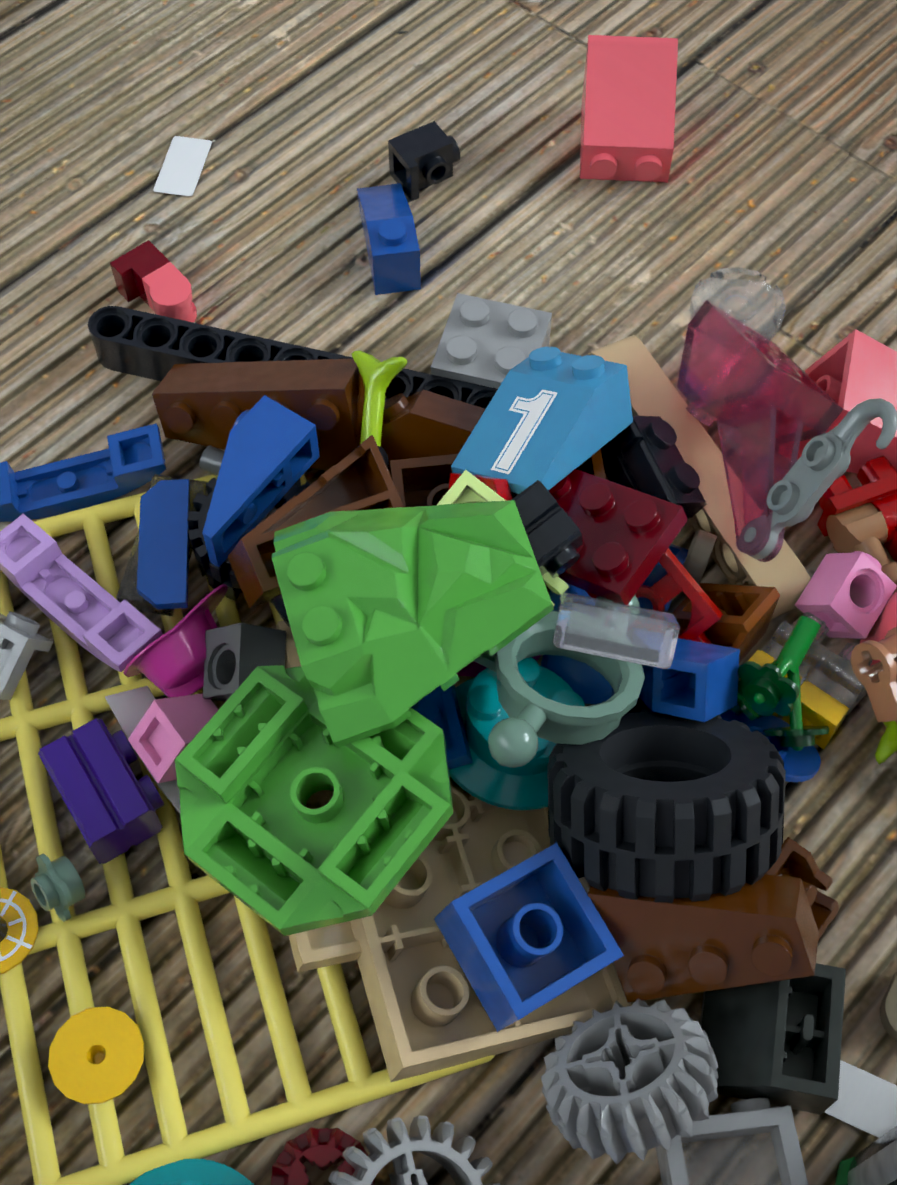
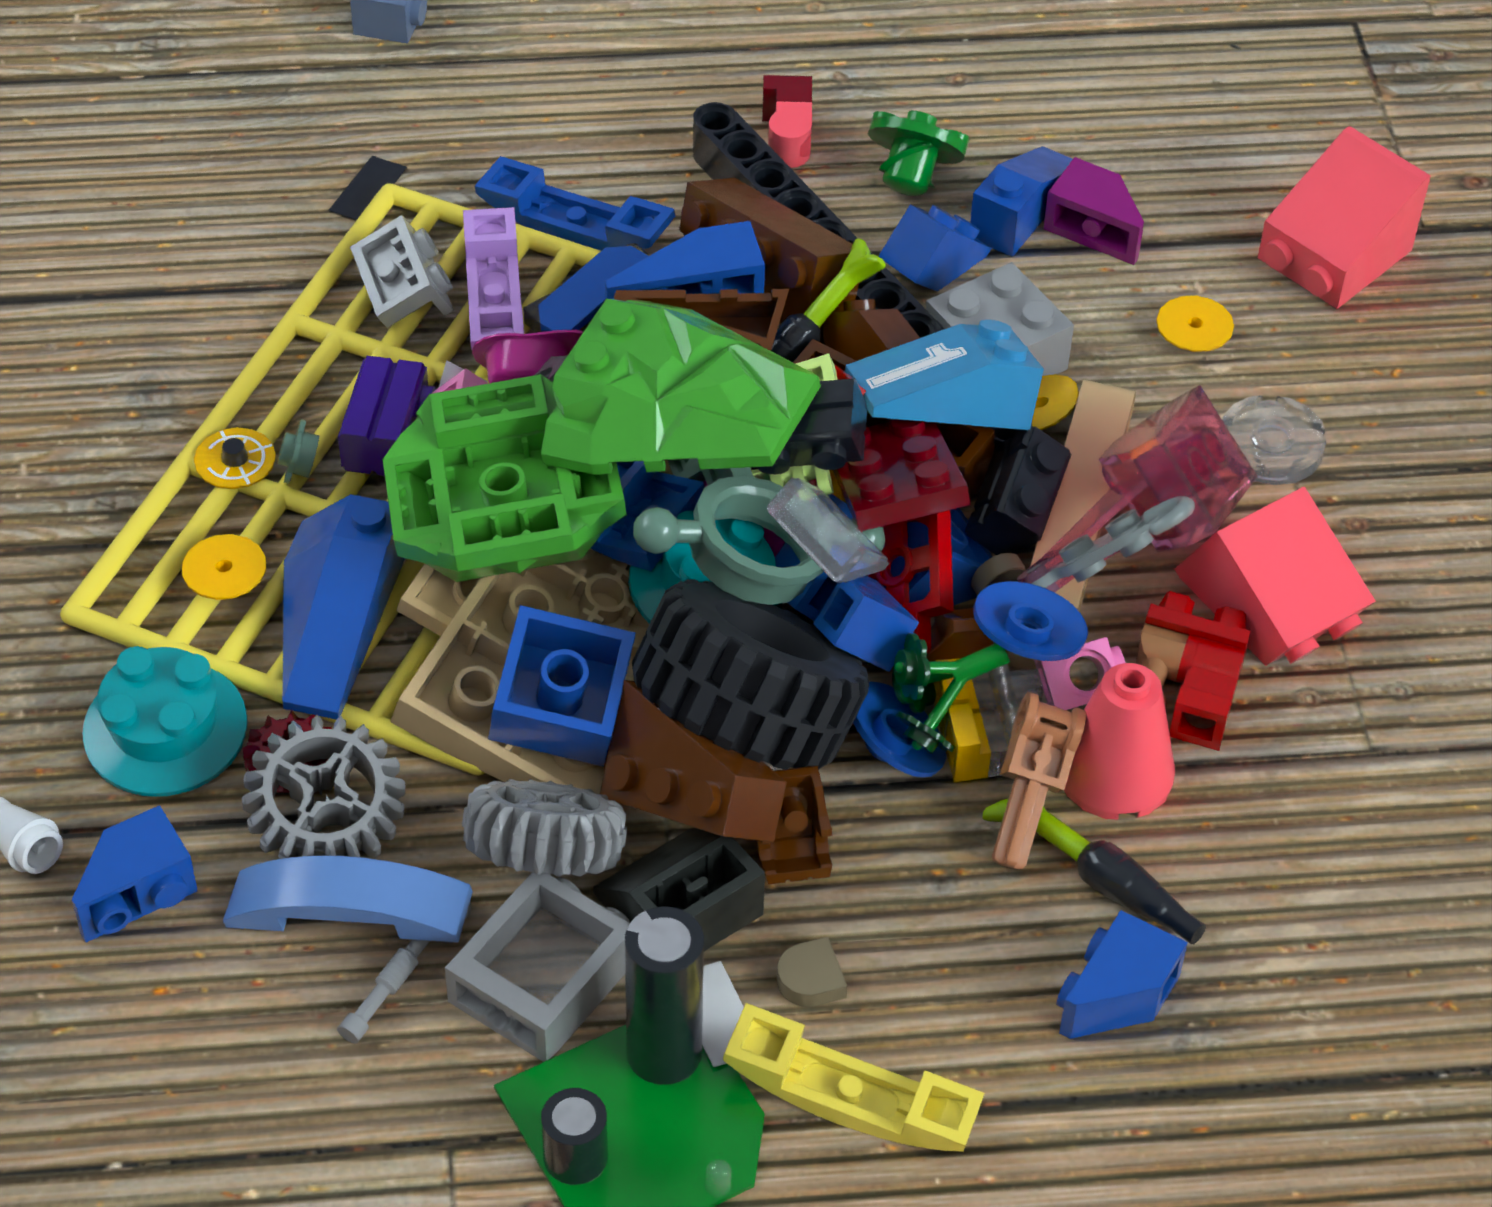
camera: 40 degrees right, 10 degrees down
(182, 166) = (917, 44): white sticker -> none
(219, 999) = (333, 601): none -> blue wedge
(283, 250) = (914, 149): none -> green plate
(373, 320) = (933, 247): none -> blue slope
(422, 158) = (1123, 149): black brick -> none
(455, 213) = (1095, 211): none -> magenta slope
(602, 255) = (1195, 323): none -> yellow piece
(805, 583) = (1030, 621): none -> blue dish

